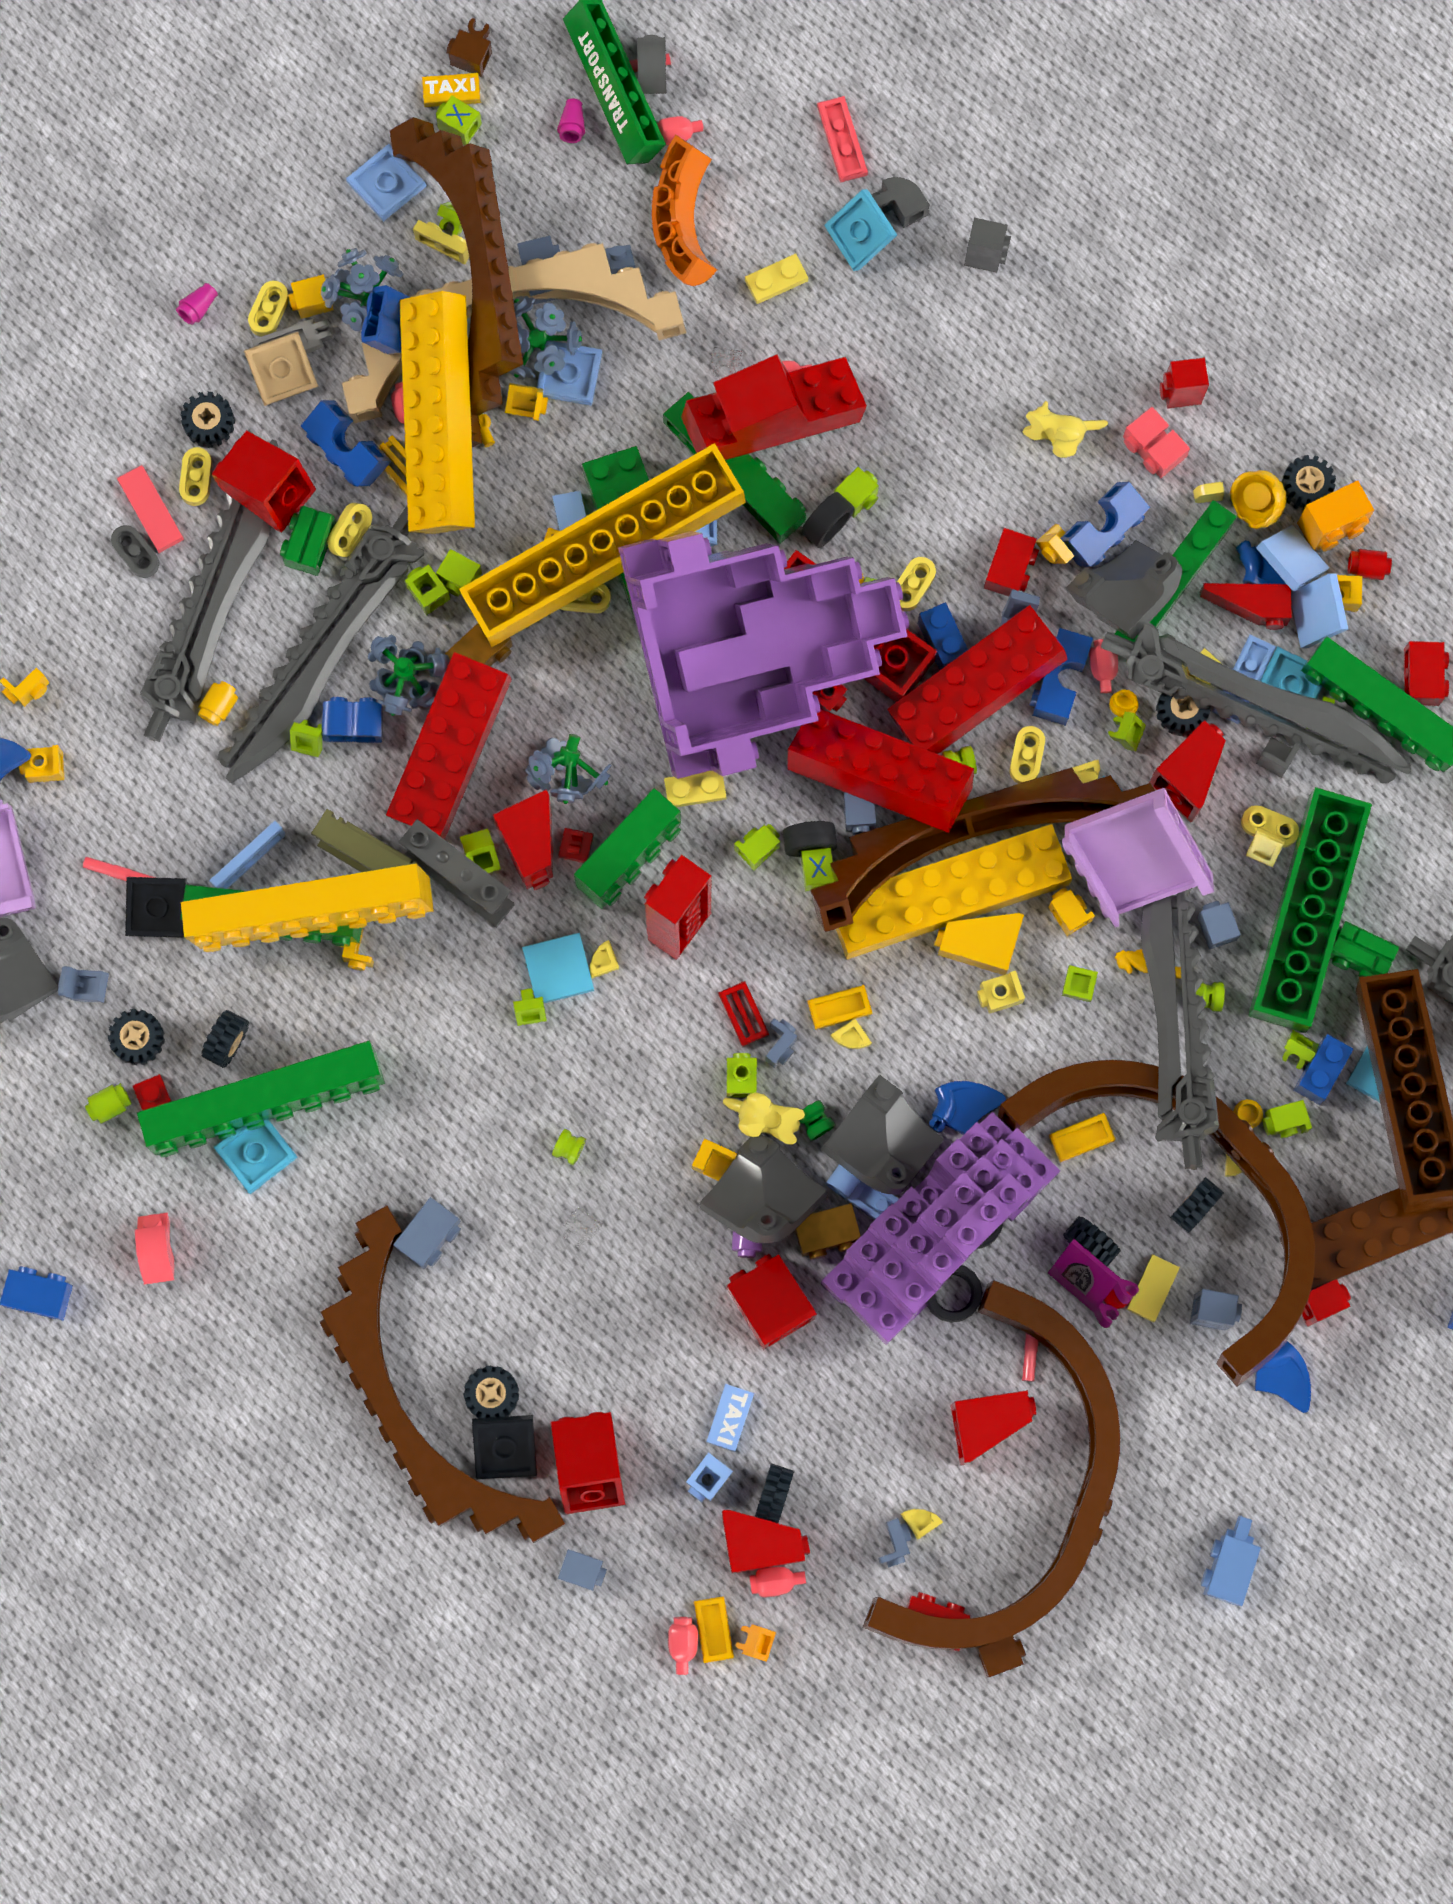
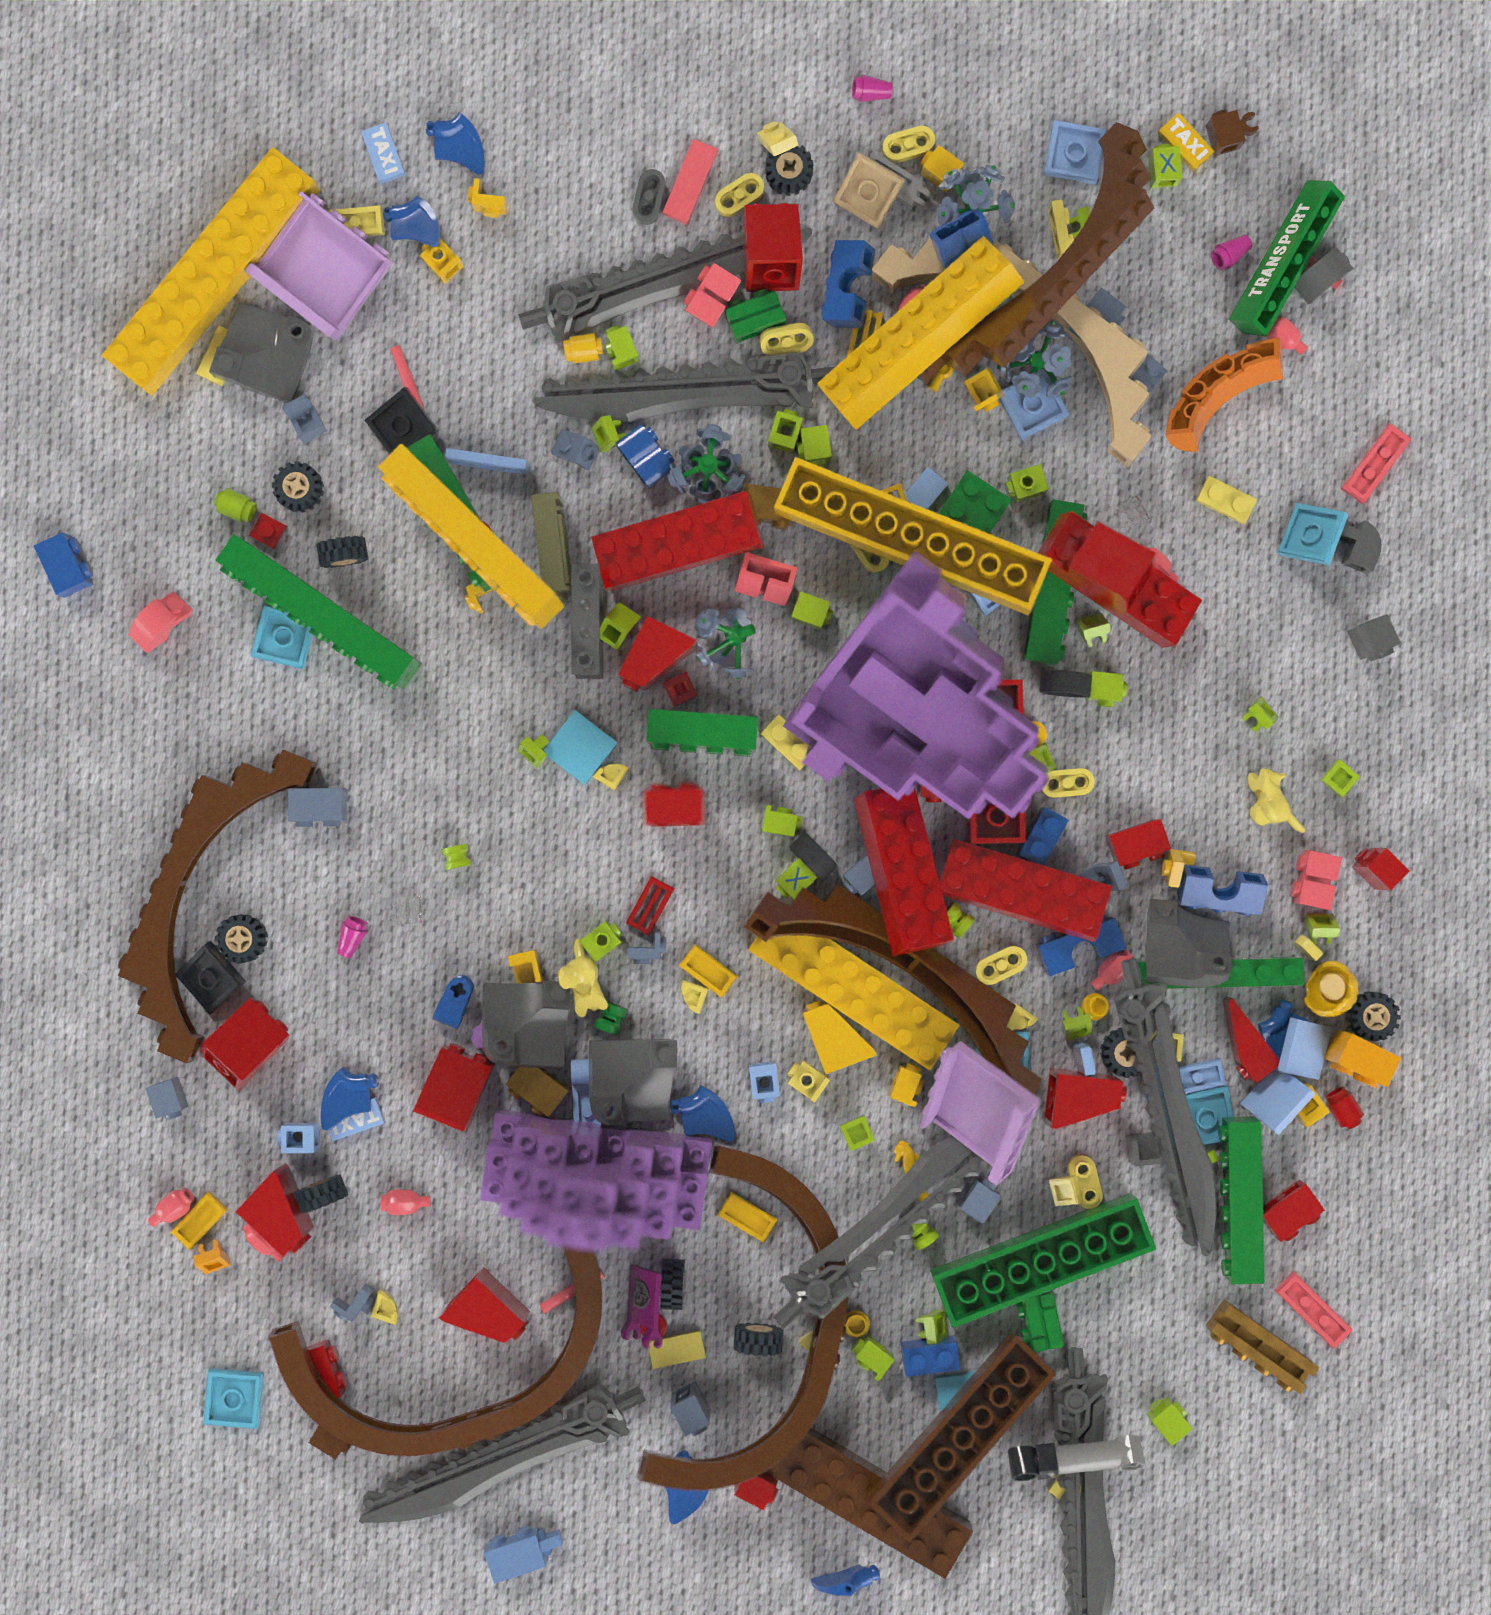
camera: 55 degrees right, 10 degrees up
(175, 408) = (777, 138): none -> light yellow plate
(243, 670) = (621, 347): none -> lime brick
(262, 566) = (712, 294): none -> coral piece
(297, 775) = (575, 449): none -> sand blue bracket
(539, 697) = (766, 578): none -> coral piece
(565, 1293) = (351, 935): none -> dark pink cone
(597, 683) = (811, 611): none -> lime brick
(632, 426) = (1026, 483): none -> lime brick
(697, 1252) = (452, 1005): none -> blue piece
(705, 1408) = (346, 1096): none -> blue arm
(797, 463) = (1092, 627): none -> lime tile
(838, 1429) = (403, 1202): none -> coral plant
(898, 1723) = (233, 1398): none -> medium azure tile
(971, 1019) = (761, 1070): none -> light blue brick
(980, 381) = (1262, 712): none -> lime tile
(1083, 360) = (1340, 778): none -> lime tile
(1144, 1419) = (591, 1411): none -> dark grey piece
(1160, 742) = (1083, 1058): none -> light blue tile
(1198, 467) = (1322, 926): none -> lime tile

